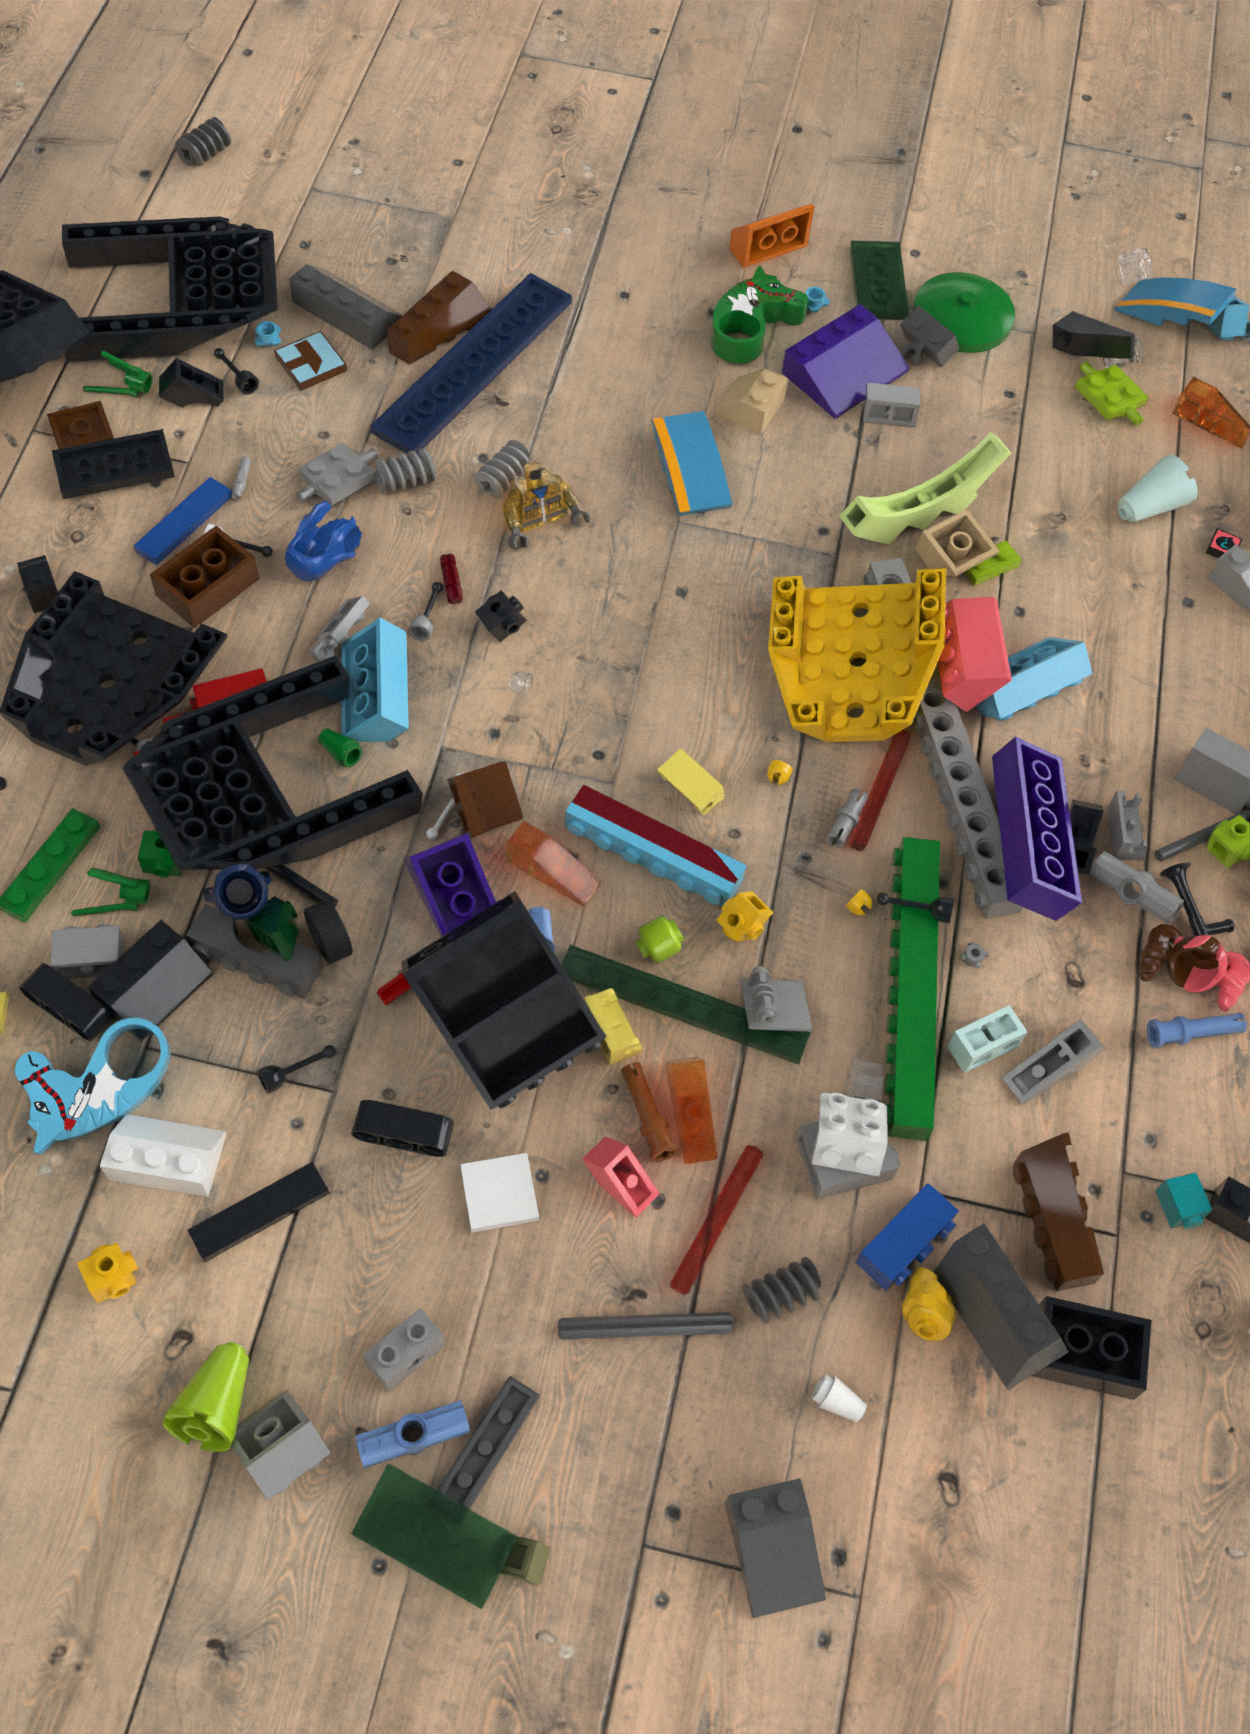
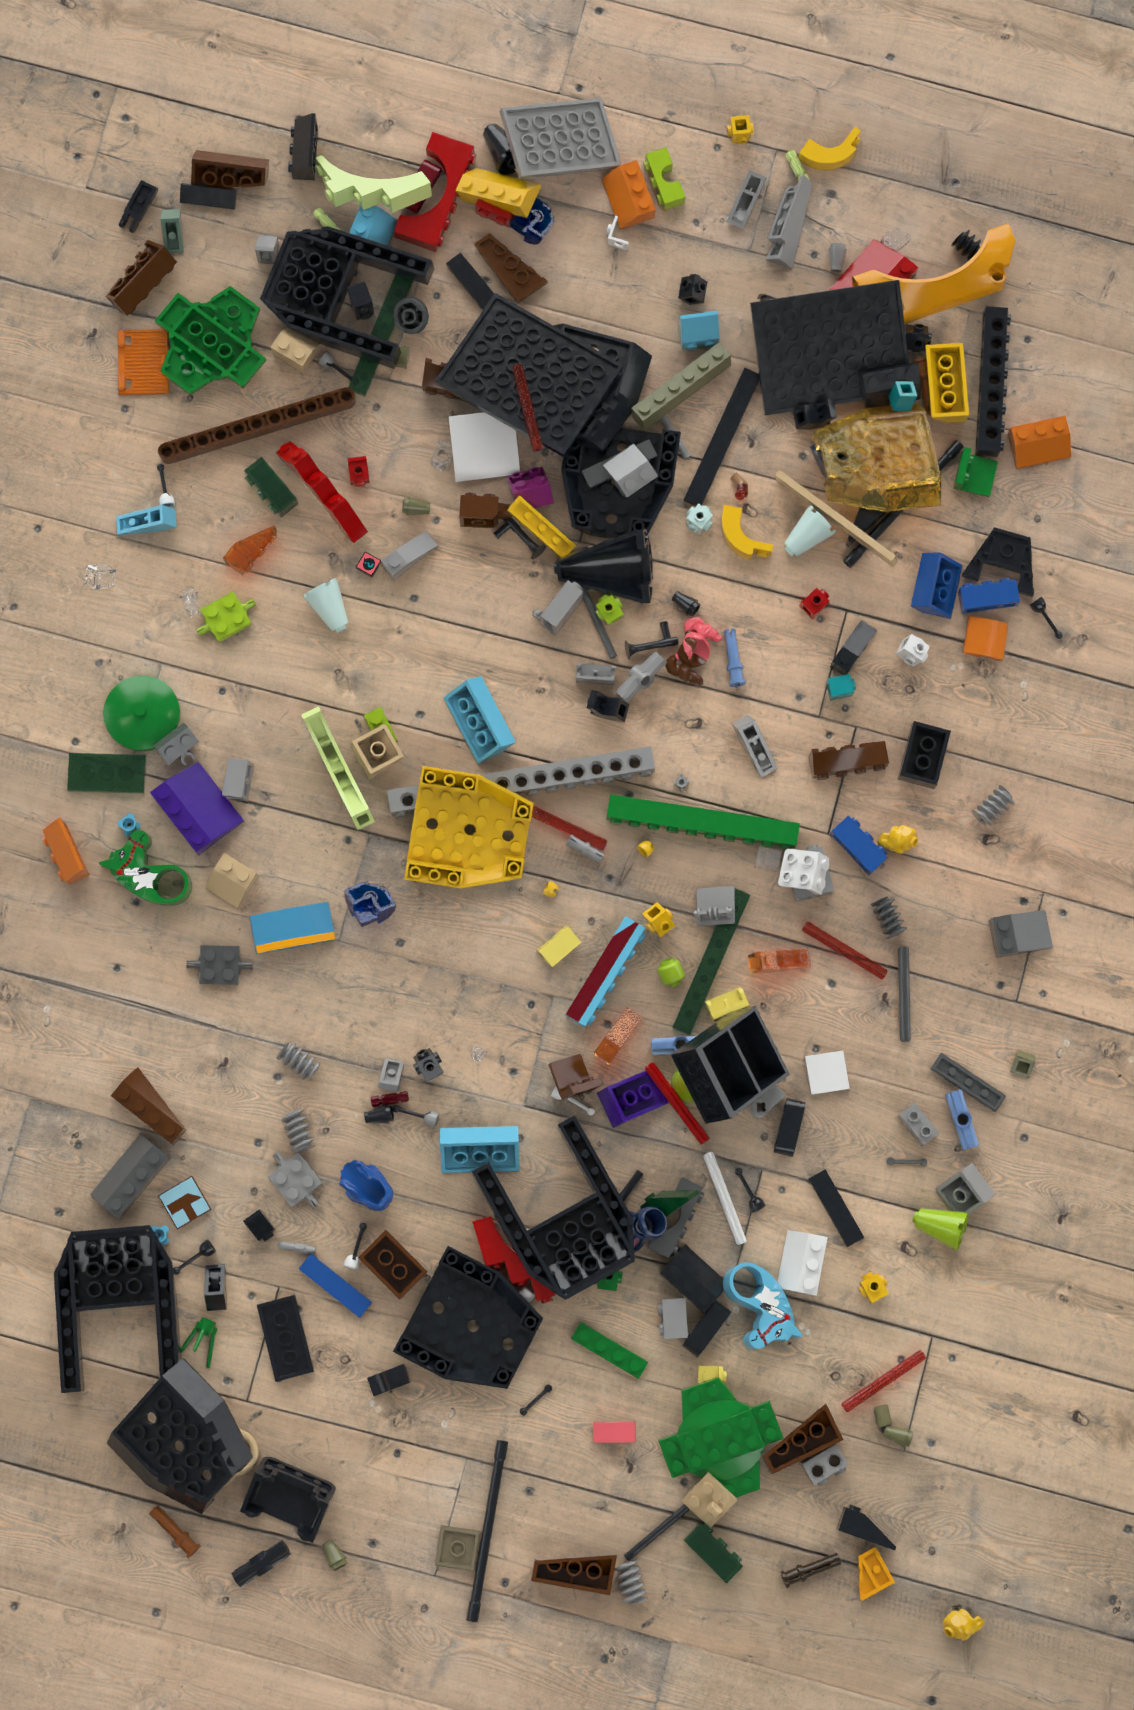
camera: 85 degrees left, 20 degrees up
(80, 425) = (249, 1365): reddish brown tile -> none
(133, 890) = (631, 1295): green plant -> none
(273, 426) = (260, 1226): none -> black slope
(283, 1030) = (724, 1197): none -> white axle
(328, 931) = (666, 1172): black tyre -> none
(337, 628) = (432, 1174): light grey hinge -> none
(340, 1308) = (890, 1161): none -> dark grey hinge
(341, 748) = (527, 1170): green cone -> none
(427, 566) = (382, 1114): none -> black cone
(435, 1535) = (1012, 1108): clear green tile -> none
(453, 1094) = (768, 1100): none -> light grey piece
(471, 365) = (191, 1082): dark blue plate -> none
(483, 573) = (391, 1075): none -> light grey slope
(536, 500) = (330, 1038): clear yellow torso -> none
(621, 1175) = (820, 1003): coral slope -> none
(634, 391) = (219, 965): none -> dark grey plate
(653, 1125) = (790, 983): dark orange pin -> none
(734, 542) = (369, 903): none -> clear blue brick
(837, 1398) = (945, 894): white cone -> none
(940, 908) = (661, 800): black hinge -> none
(973, 652) = (471, 753): coral slope -> none
(986, 1039) = (742, 784): light aqua brick -> none
(998, 1308) = (904, 801): dark grey slope -> none
(1014, 1486) = (993, 806): none -> light grey piece
(1035, 830) = (605, 734): dark purple brick -> none
(1089, 337) = (181, 626): black slope -> none
(1176, 300) = (146, 555): dark azure slope -> none

